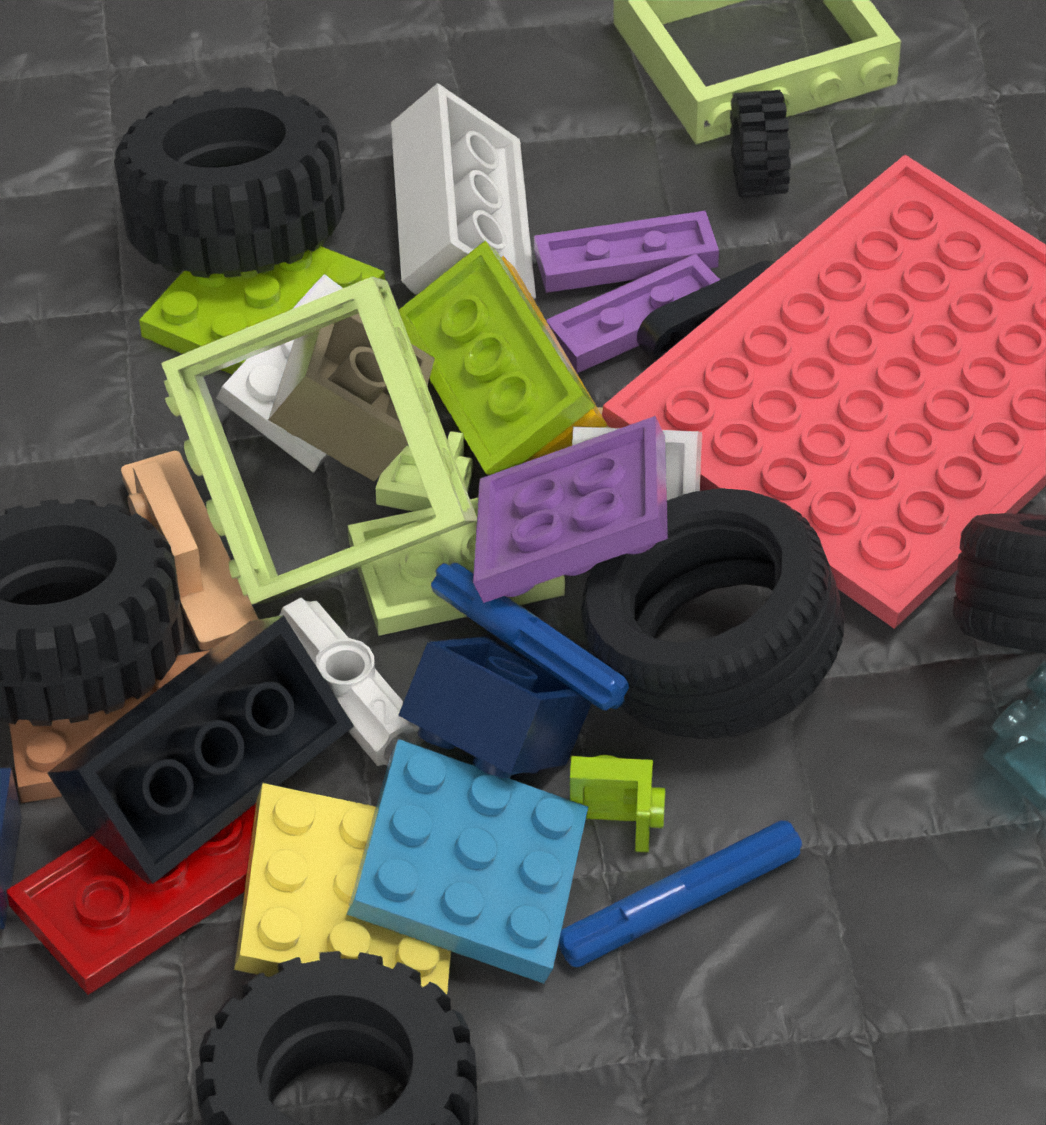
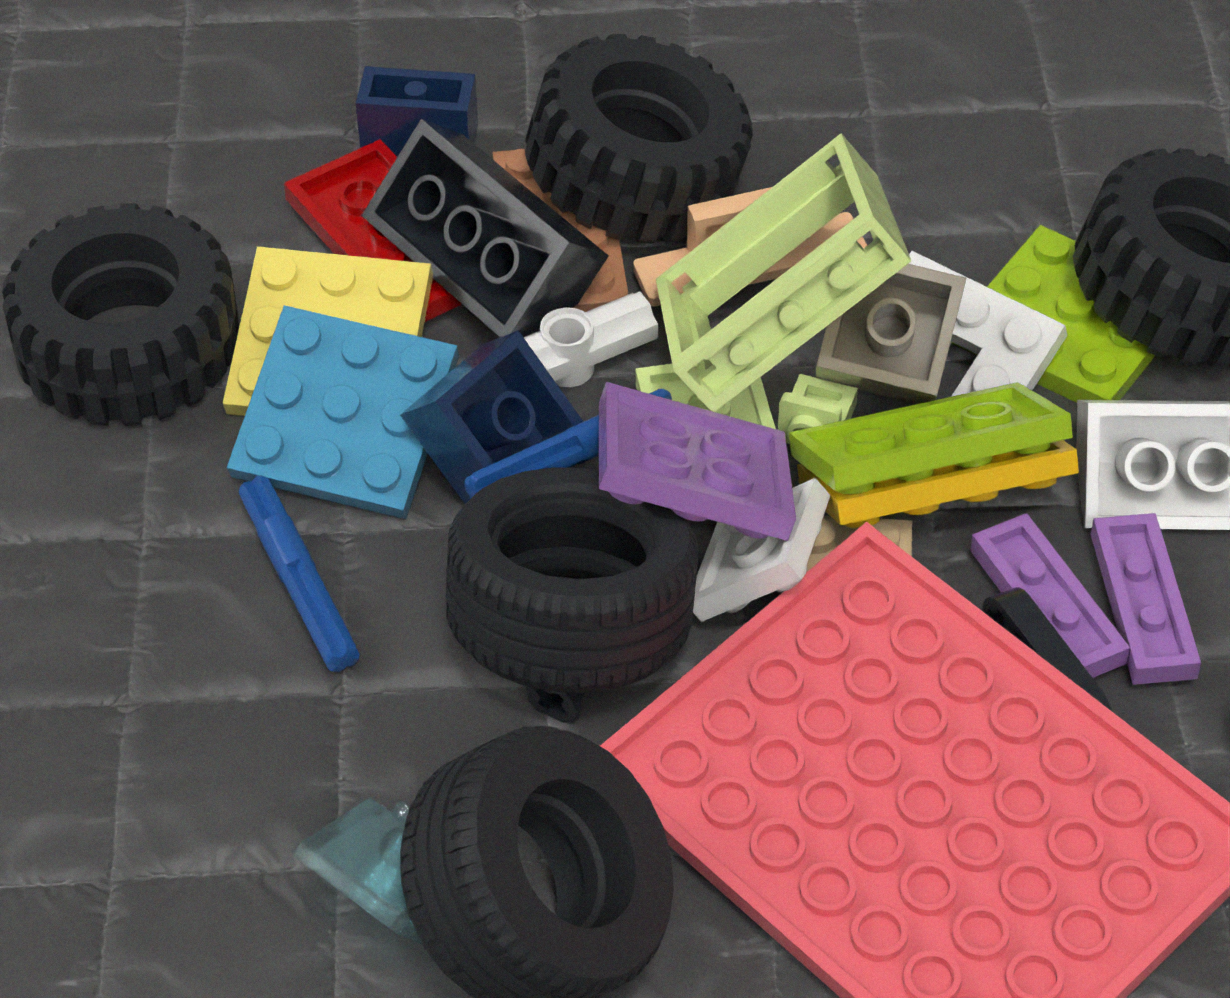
camera: 95 degrees right, 0 degrees up
(620, 792) = (403, 541): lime bracket -> none

